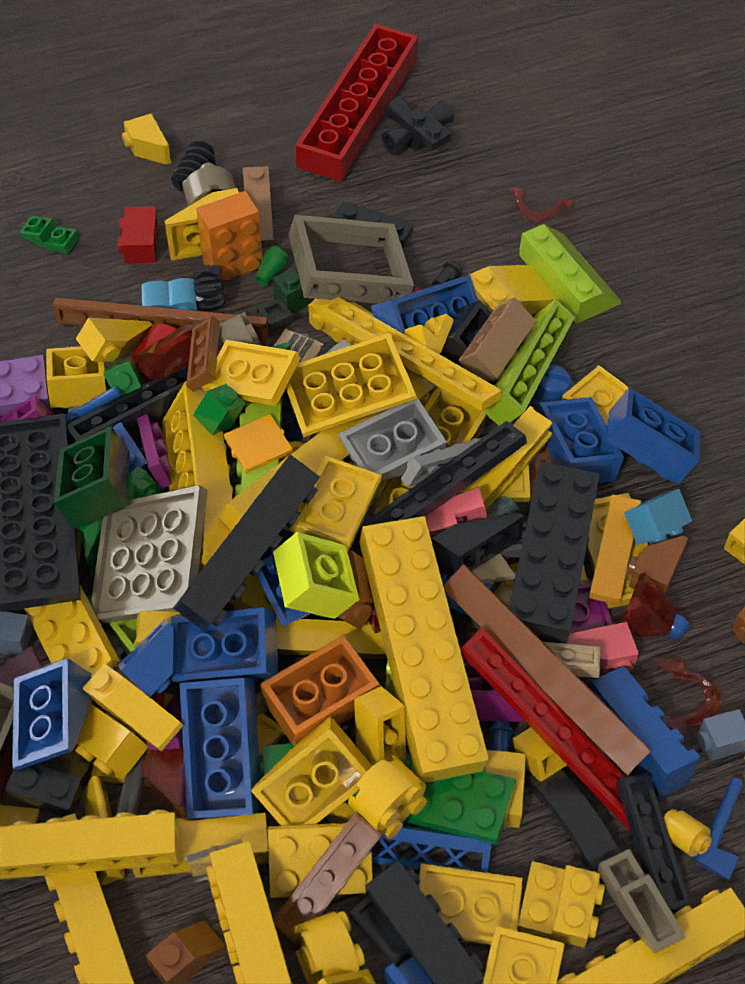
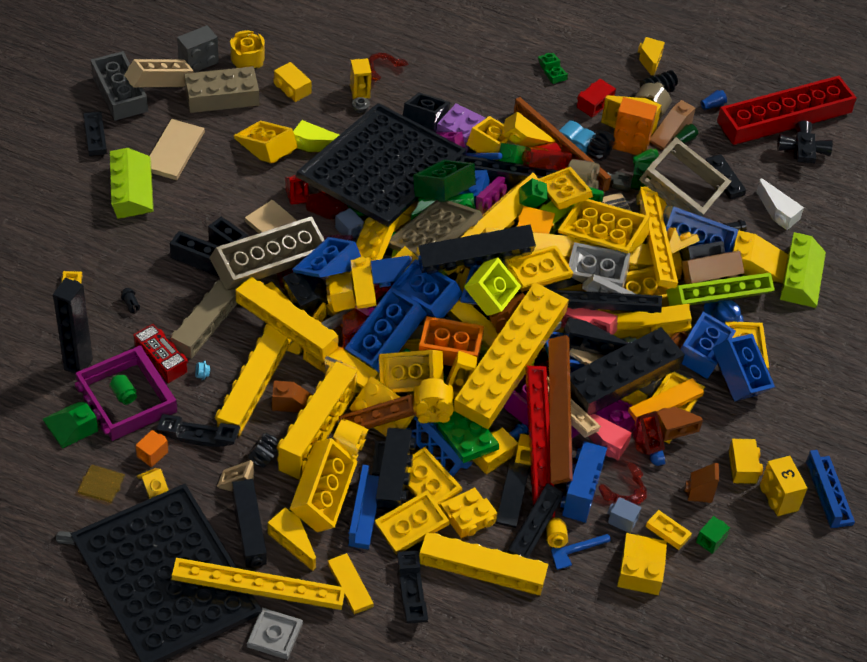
camera: 40 degrees right, 5 degrees down
(203, 353) = (554, 165): dark orange tile -> none
(270, 142) = (714, 100): none -> blue cone
(283, 205) = (687, 133): none -> dark green cone
(465, 215) = (779, 206): none -> white slope
(535, 216) = (826, 236): clear red helmet -> none
(640, 901) = (500, 532): dark tan slope -> none
(658, 518) = (703, 403): dark azure brick -> none

